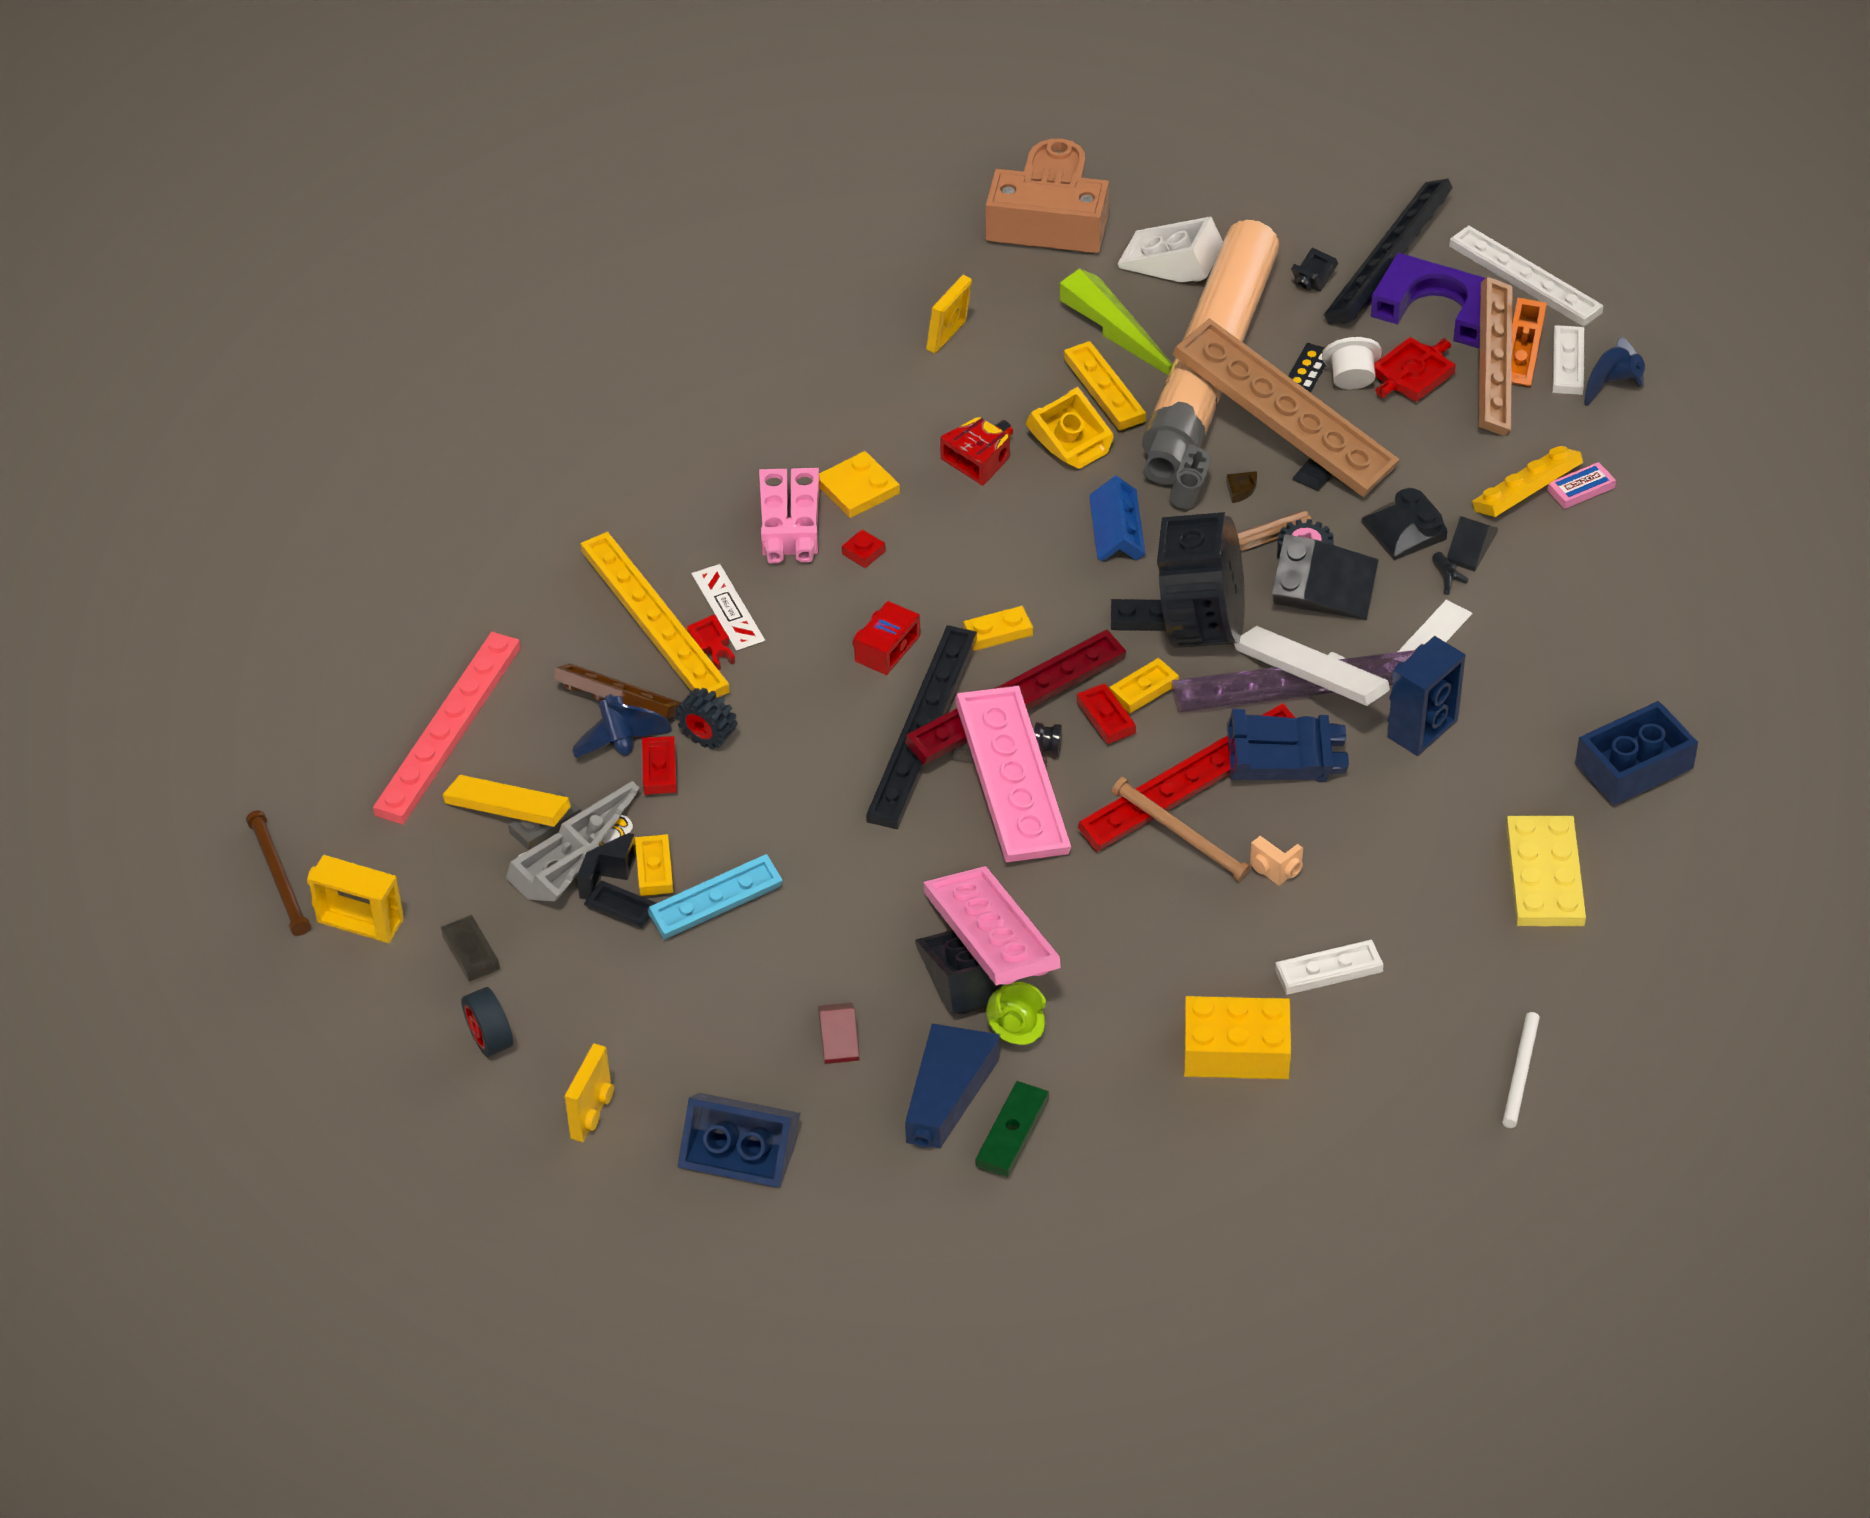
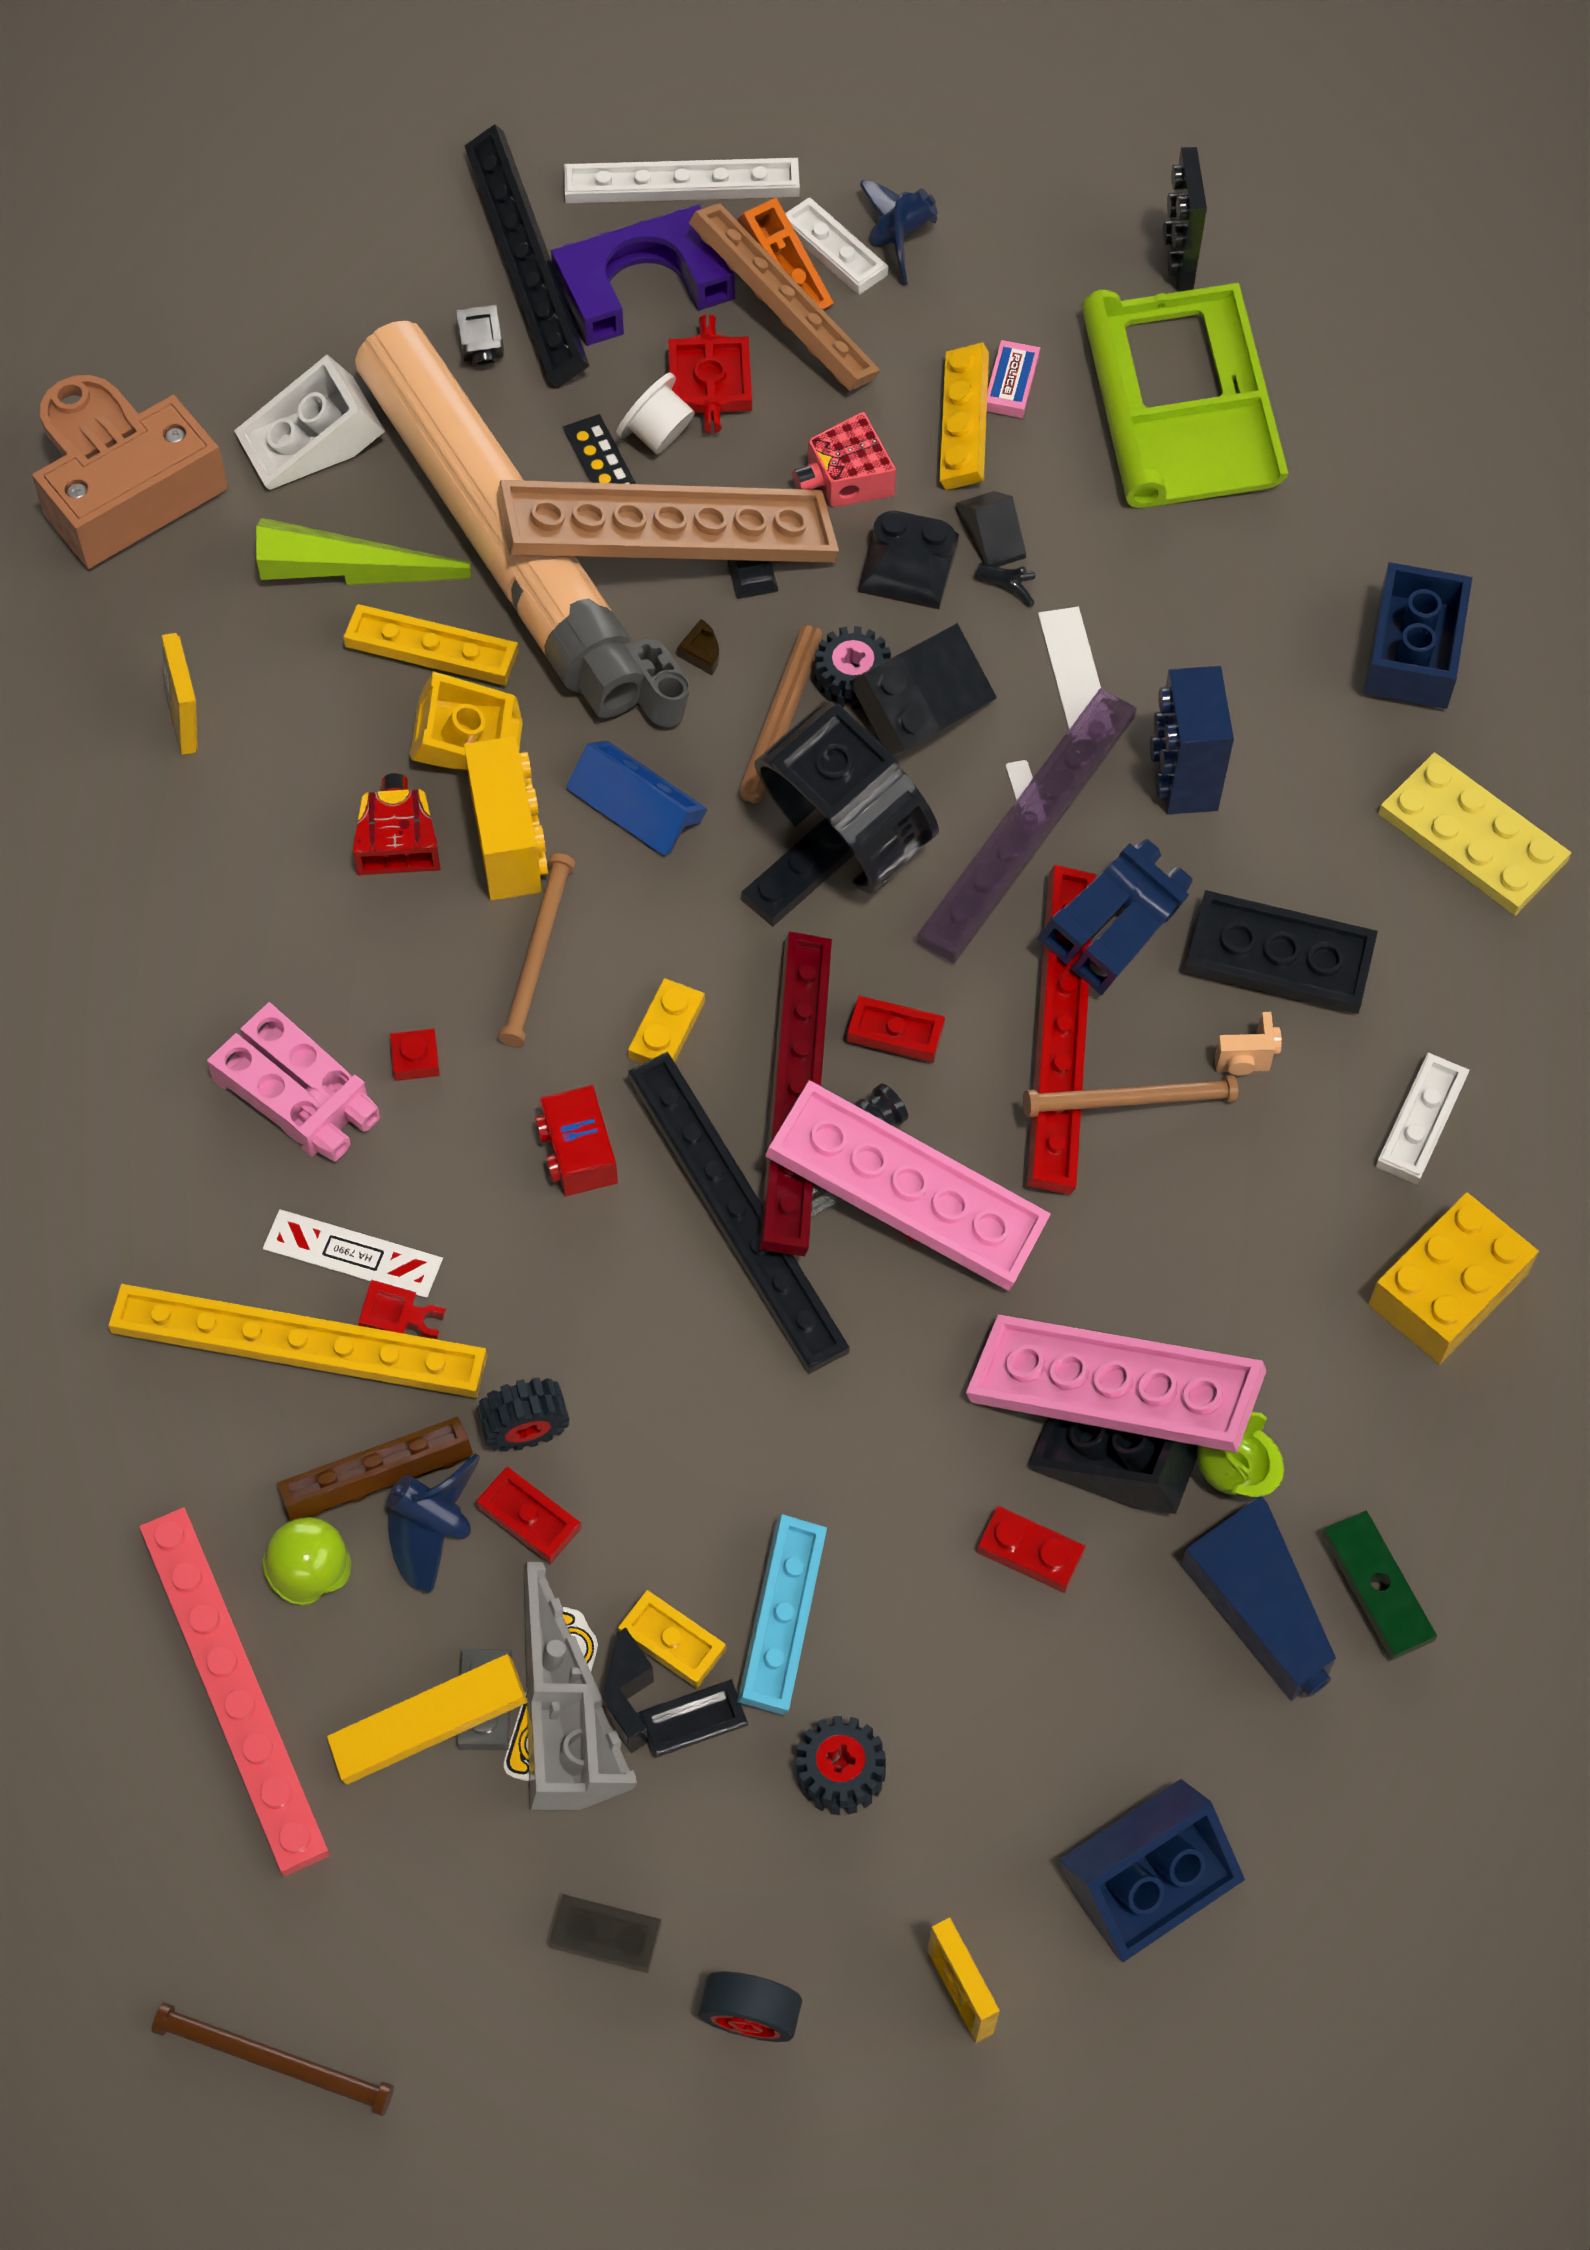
camera: 50 degrees left, 15 degrees up
(373, 920) = (424, 2009): yellow window -> none
(541, 699) = (306, 1560): none -> lime helmet
(658, 976) = (840, 1783): none -> black wheel
(838, 1033) = (1084, 1641): slope -> none
(858, 484) = (315, 981): yellow plate -> none
(868, 974) = (1031, 1549): none -> red plate
(1030, 475) = (506, 817): none -> yellow brick
(1037, 524) = (513, 1034): none -> medium nougat bar
(1144, 685) = (893, 961): yellow plate -> none
(1312, 665) = (1052, 798): white tile -> none
(1355, 836) = (1281, 951): none -> black plate
(1429, 457) = (848, 464): none -> coral torso
(1646, 588) = (1193, 445): none -> lime piece
(1771, 466) = (1187, 219): none -> black plate

